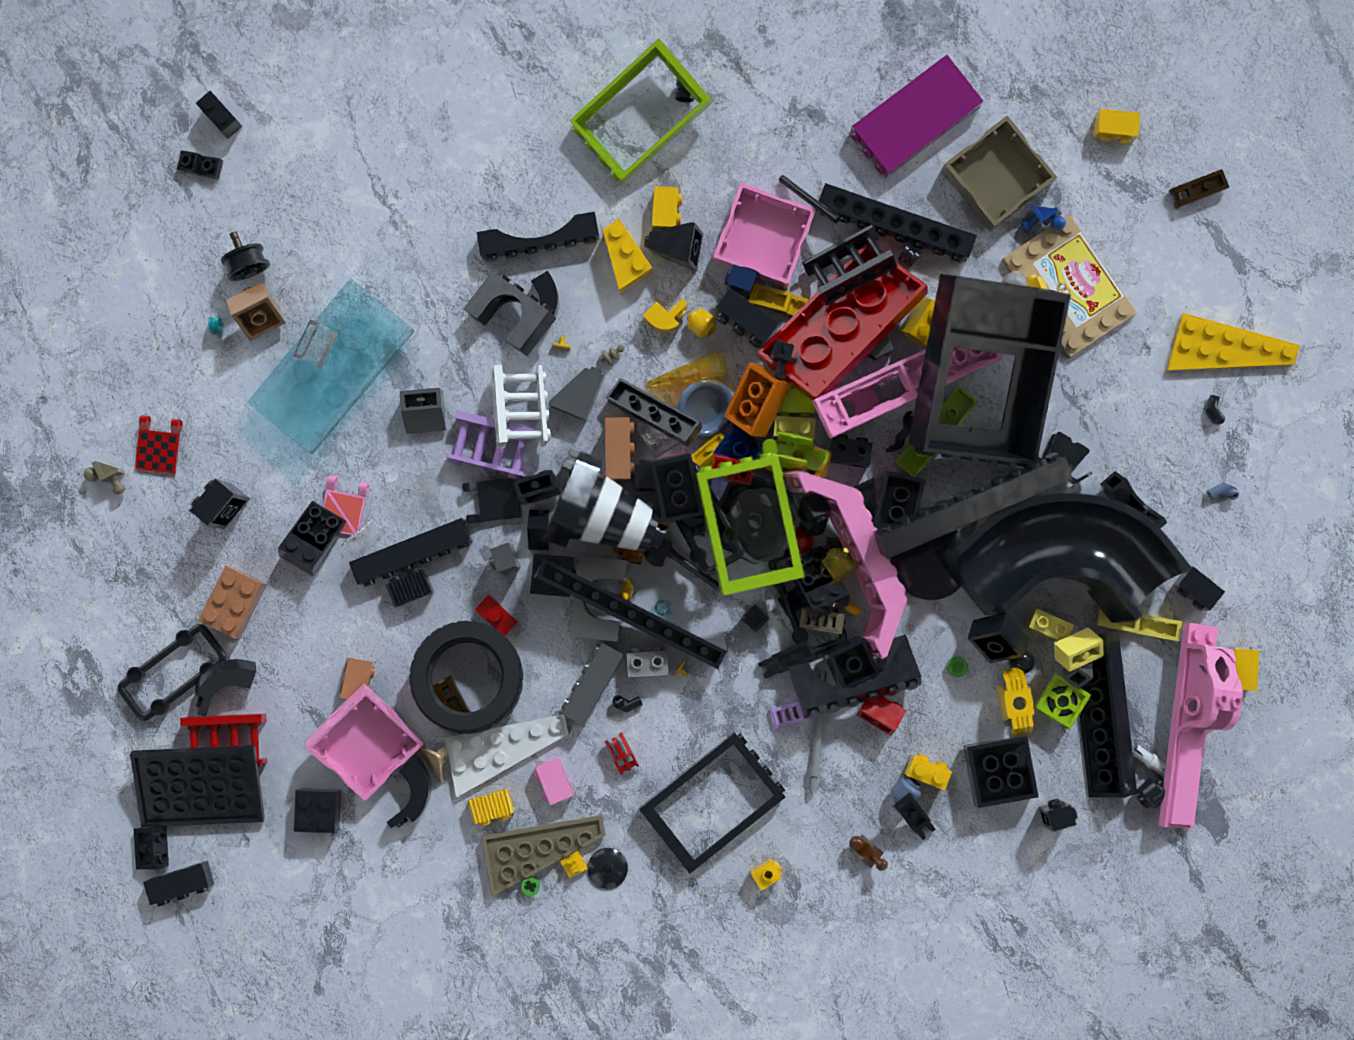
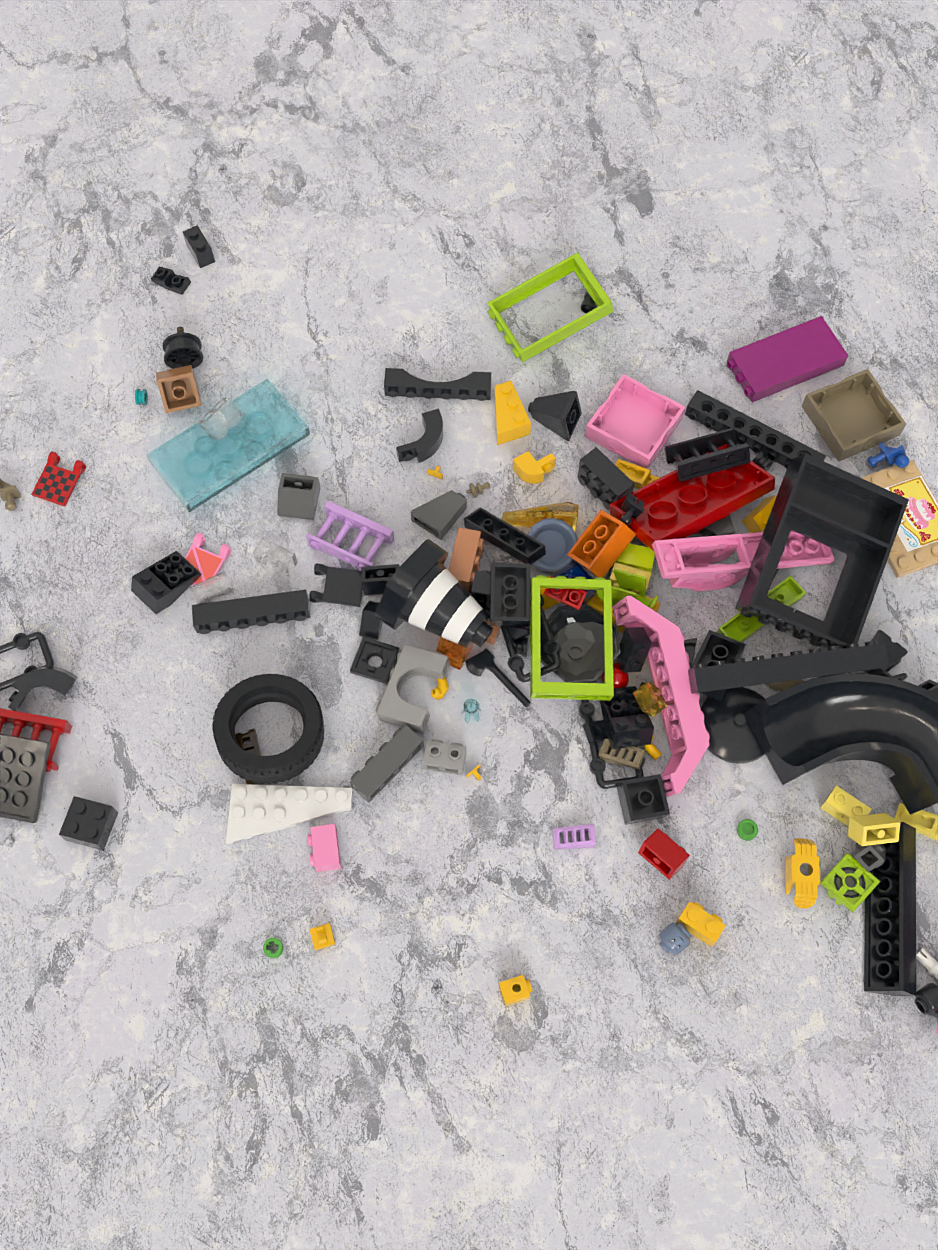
camera: 10 degrees right, 20 degrees down
(218, 503) = (93, 528): black brick -> none
(232, 602) = (76, 619): nougat brick -> none
(355, 675) = (164, 710): nougat brick -> none
(364, 741) = (153, 765): bright pink tile -> none
(409, 587) = (240, 641): black brick -> none
(420, 789) = (190, 833): black arch -> none
(434, 760) = (215, 800): tan piece -> none
(491, 806) = (257, 858): yellow brick -> none
(496, 615) = (311, 679): red tile -> none
(498, 291) = (393, 417): black arch -> none
(502, 416) = (368, 511): white fence -> none
(504, 559) = (334, 632): dark grey brick -> none
(525, 851) = (282, 911): dark tan wing -> none
(607, 857) = (362, 957): black dish -> none
(626, 705) = (413, 793): black arm -> none
(628, 765) = (398, 839): red arm -> none
(630, 613) = (440, 703): black brick -> none
(665, 207) = (554, 380): yellow brick -> none
(666, 833) = (425, 930): black window -> none
(701, 323) = (564, 479): yellow head -> none
(740, 280) = (609, 445): dark blue brick -> none
(754, 618) = (557, 740): black panel -> none
(789, 657) = (582, 782): black hinge -> none
(809, 199) = (678, 397): black bar -> none
(814, 770) = (585, 897): light grey bar -> none
(820, 697) = (606, 821): black arch -> none
(850, 452) = (679, 611): black brick -> none
(867, 852) = (623, 992): reddish brown piece -> none
(900, 437) = (729, 609): black hair -> none
(914, 815) = (679, 962): black hinge -> none
(1000, 640) = (797, 805): black brick -> none
(1000, 771) = (776, 938): black slope -> none
(1058, 815) = (830, 996): black brick -> none

